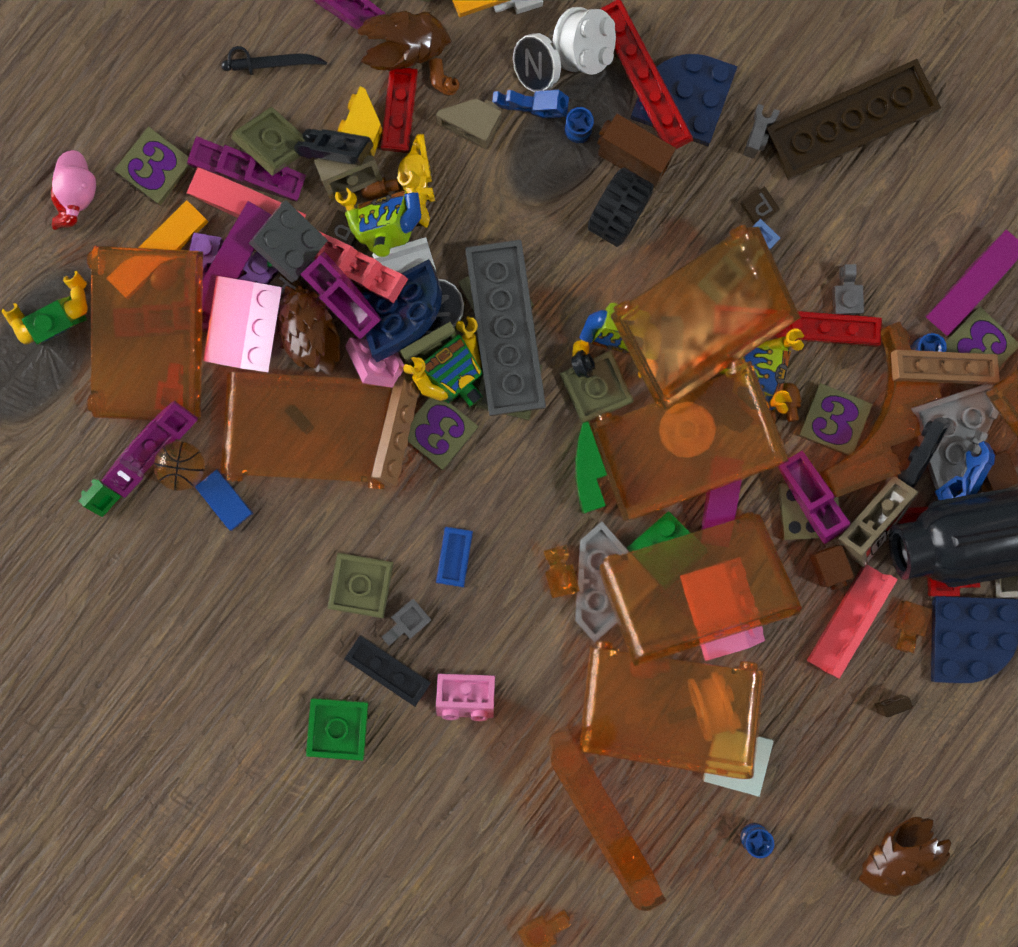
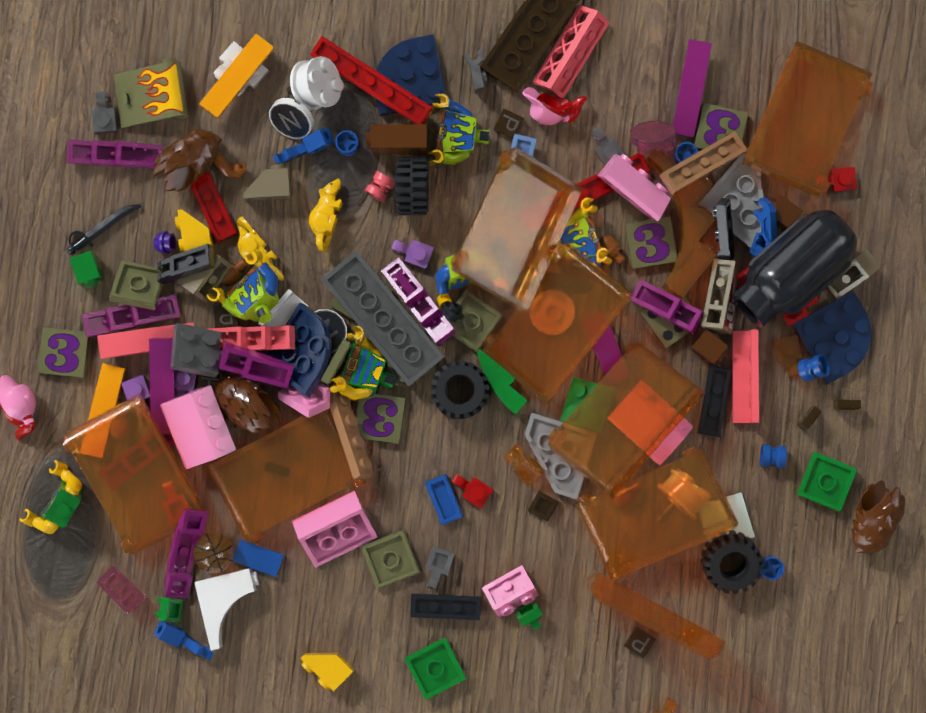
camera: 30 degrees left, 0 degrees up
(74, 453) = (139, 596): none -> clear pink slope
(89, 531) = (176, 636): none -> blue piece
(155, 515) = (218, 595): none -> white arch
(226, 659) = (329, 667): none -> yellow slope
(229, 93) = (86, 269): none -> green brick
(320, 518) = (334, 529): none -> bright pink slope
(327, 115) = (165, 242): none -> dark purple plate
(470, 733) = (528, 615): none -> green tile
(492, 567) = (475, 491): none -> red plate
(507, 185) = (323, 217): none -> yellow animal
(546, 427) = (466, 370): none -> black tyre
(553, 334) = (418, 301): none -> slope
(554, 627) = (543, 506): none -> dark brown tile
(569, 833) = (639, 642): none -> dark brown tile
(582, 282) = (416, 254): none -> medium lavender plate
(586, 190) = (380, 186): none -> coral wheel
(699, 180) = (455, 133): none -> torso
(719, 831) = (740, 577): none -> black tyre
(802, 627) = (714, 401): none -> black tile
(815, 219) = (551, 110): none -> hair
(832, 724) = (775, 456): none -> blue wheel
(855, 350) = (635, 186): none -> bright pink slope
(871, 784) = (826, 481): none -> green plate
(875, 173) = (575, 52): none -> coral fence
(907, 308) = (653, 136): none -> clear pink tile
(932, 656) = (814, 367): none -> blue wheel
(942, 716) = (846, 404): none -> dark brown tile

